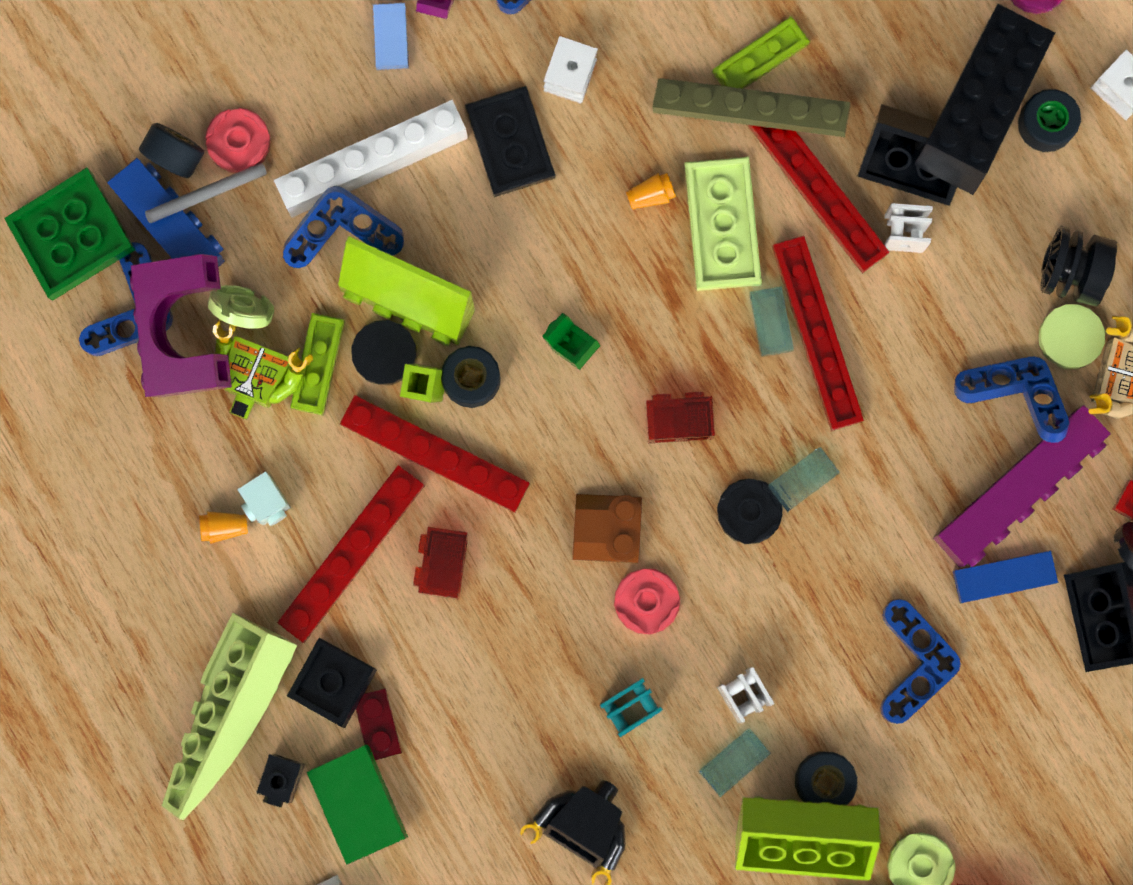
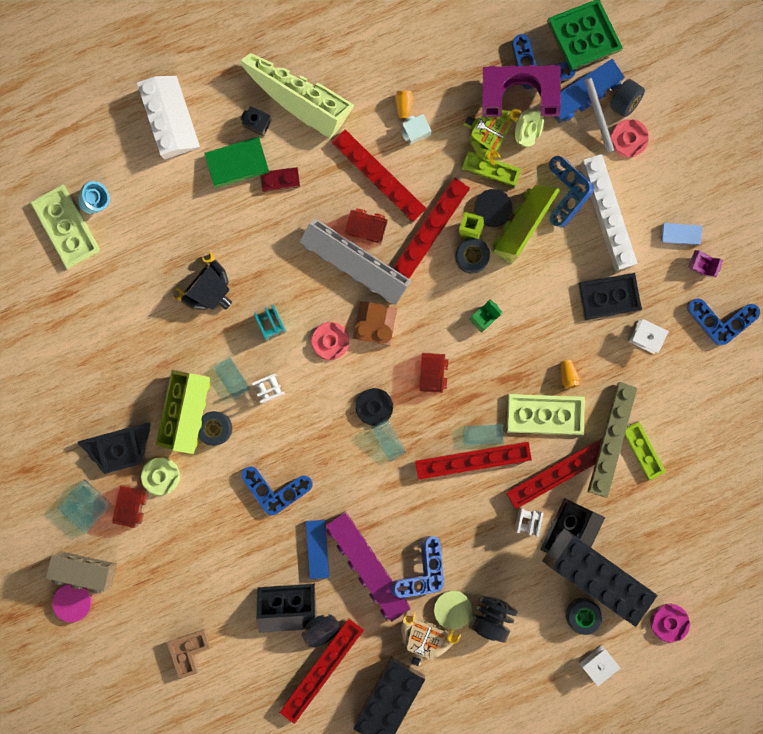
camera: 95 degrees right, 5 degrees up
(331, 682) = (306, 156): black tile -> none
(506, 574) = (355, 261): none -> light grey brick

